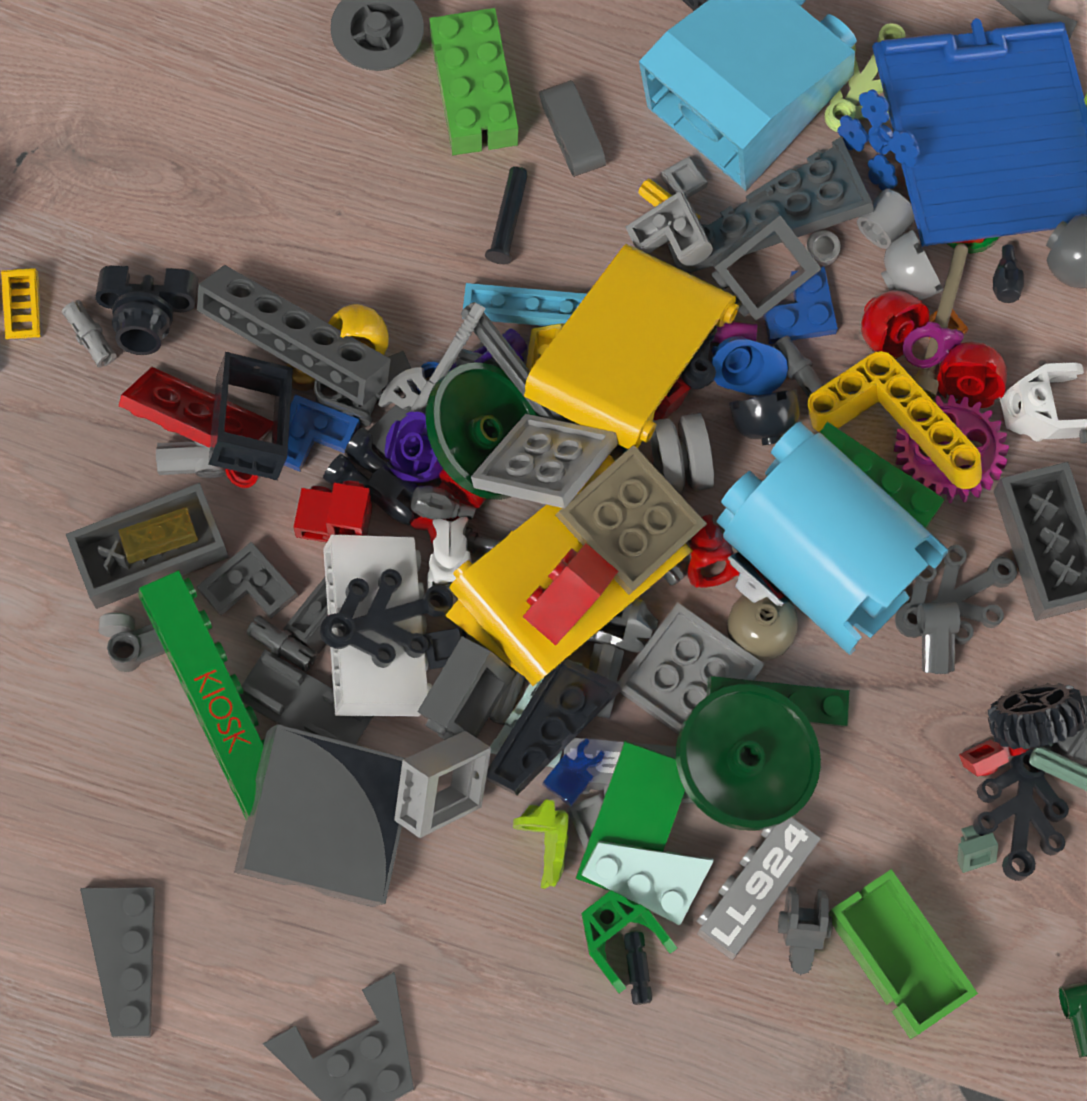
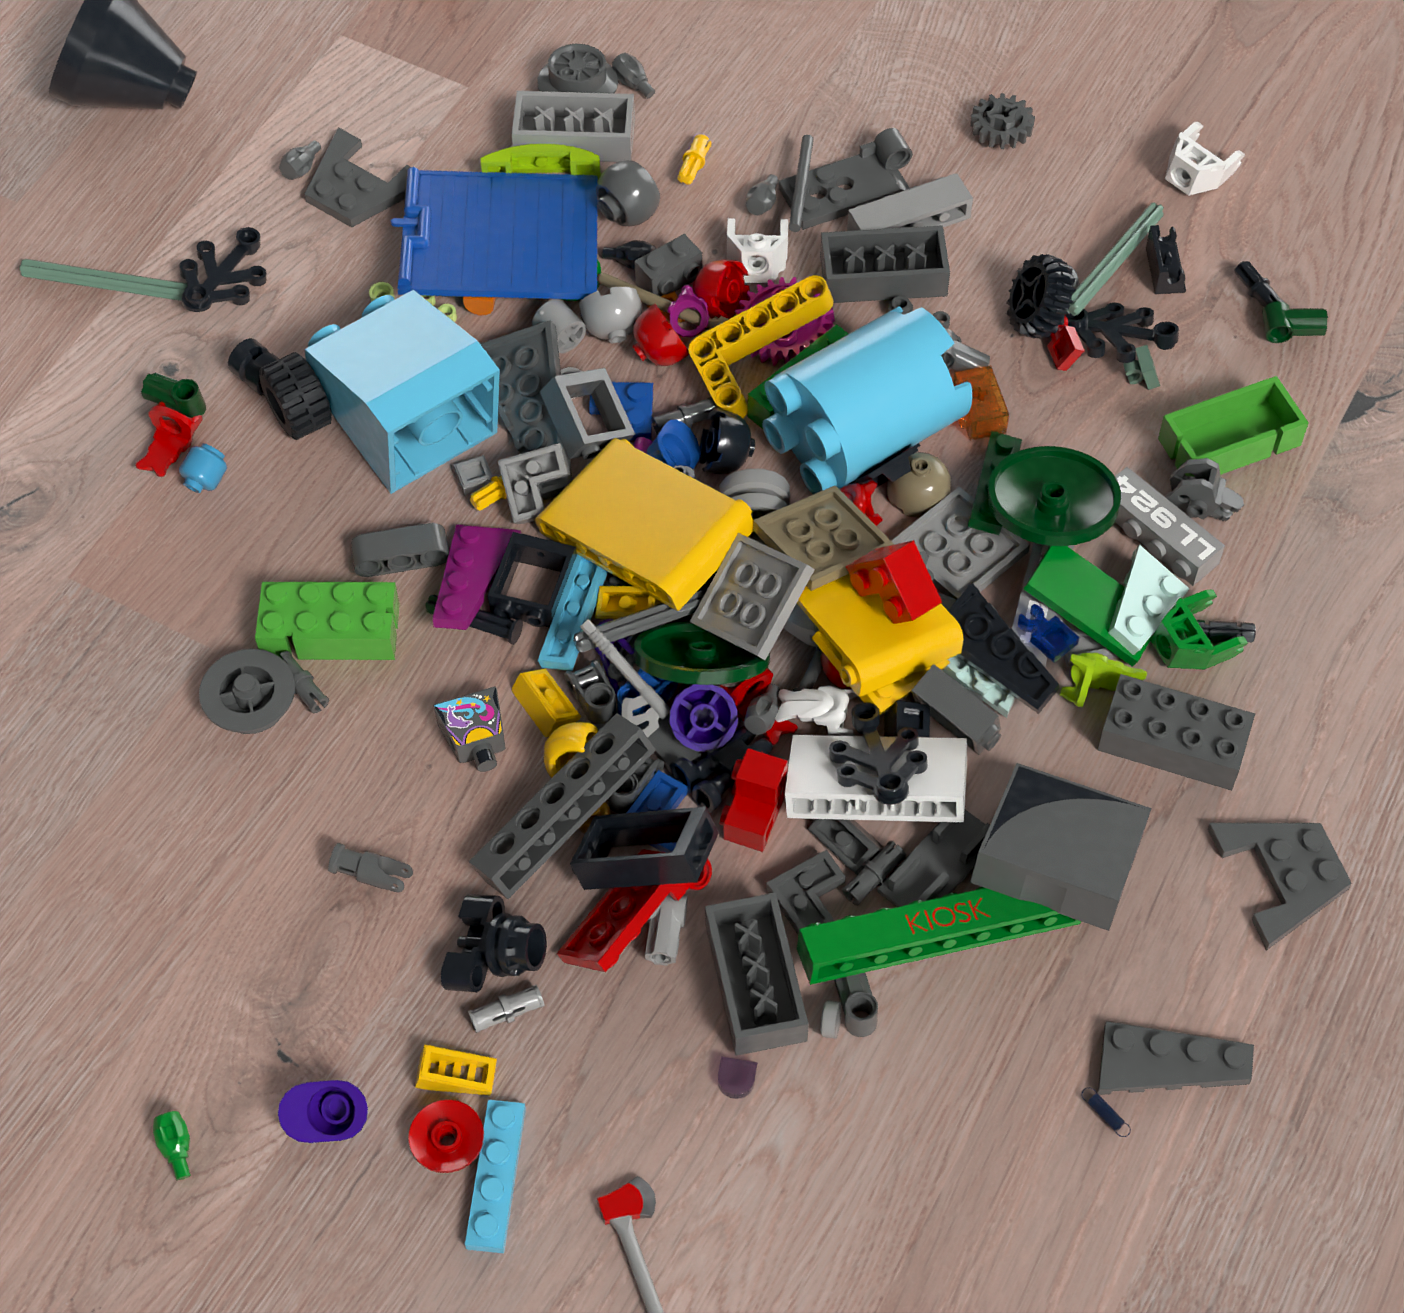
camera: 75 degrees left, 15 degrees down
(51, 550) = (736, 1077): none -> clear purple tile
(61, 898) = (1106, 1112): none -> dark blue piece
(157, 535) = (755, 947): clear yellow slope -> none
(213, 178) = (369, 868): none -> dark grey piece
(378, 241) = (473, 727): none -> torso
(403, 76) = (304, 684): none -> dark grey pin
(420, 806) = (1047, 736): light grey window -> none
(427, 303) = (544, 700): none -> yellow slope
(437, 338) = (591, 688): none -> dark grey piece
(493, 926) = (1176, 732): none -> dark grey brick
(561, 233) = (537, 553): none -> black window
(565, 199) = (469, 574): none -> magenta wing
(869, 686) = (988, 406): none -> clear orange brick
(881, 139) = (488, 306): blue plant -> none
(993, 315) = (669, 266): none -> dark grey brick

